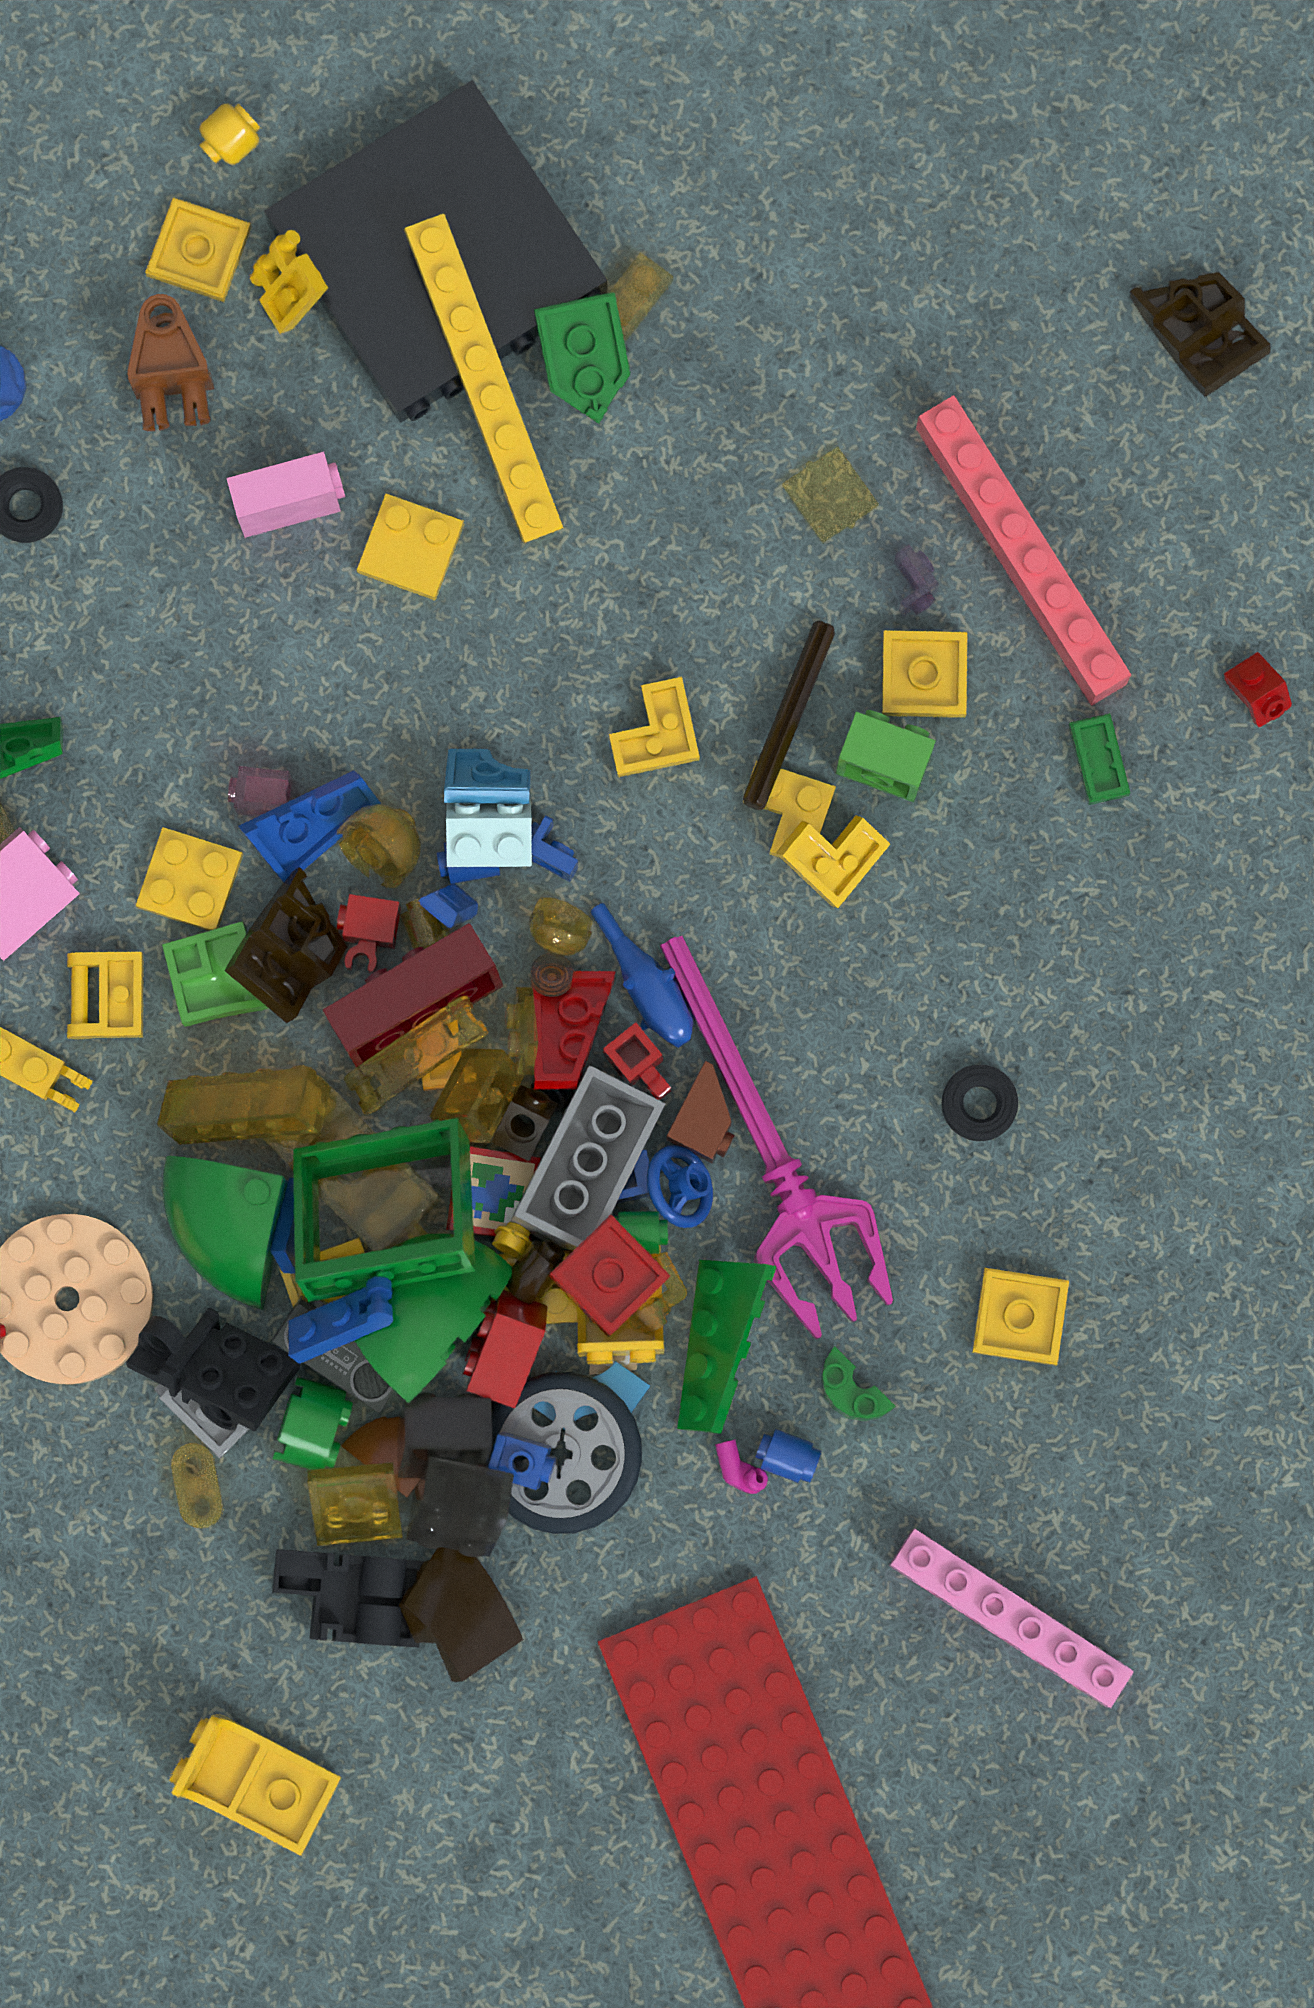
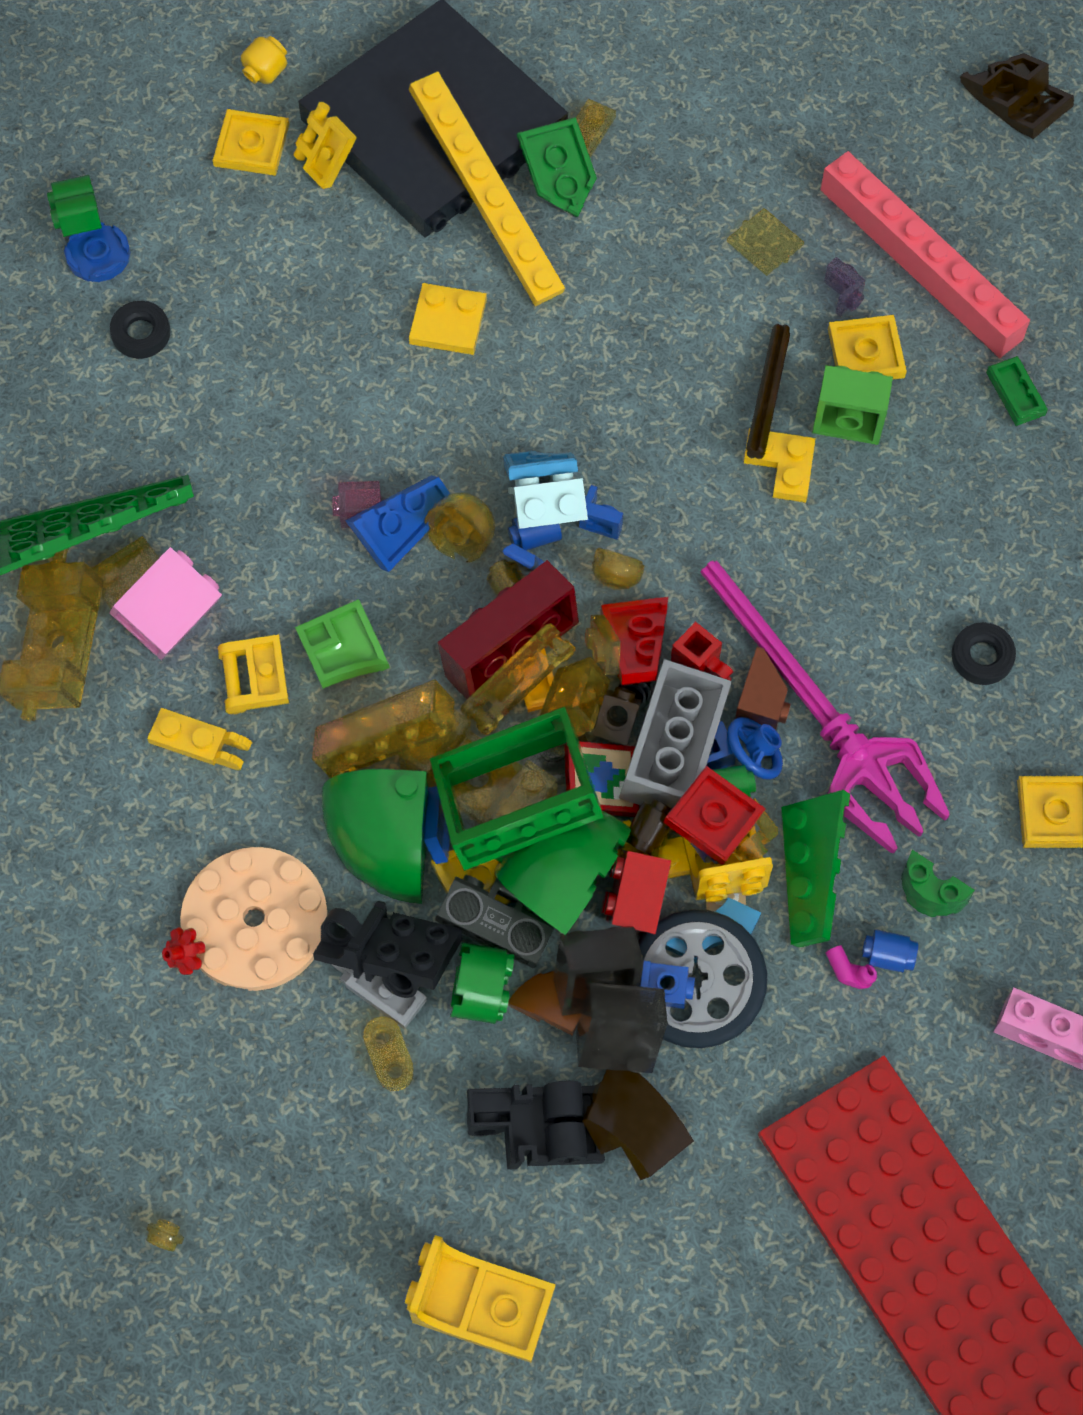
camera: 10 degrees left, 15 degrees down
(166, 364) = (241, 211): dark orange piece -> none
(189, 880) = (309, 579): yellow plate -> none
(286, 494) = (345, 286): bright pink brick -> none
(287, 949) = (399, 617): dark brown slope -> none
(341, 1321) = (496, 878): blue plate -> none
(355, 1504) = (528, 1043): clear yellow plate -> none
(370, 924) = (461, 589): red brick -> none
(512, 1239) = (624, 807): yellow plate -> none
(551, 975) = (618, 602): clear smoke tile -> none
(648, 984) = (697, 600): blue piece -> none
(666, 740) = (674, 422): yellow plate -> none
(836, 867) = (826, 493): yellow plate -> none

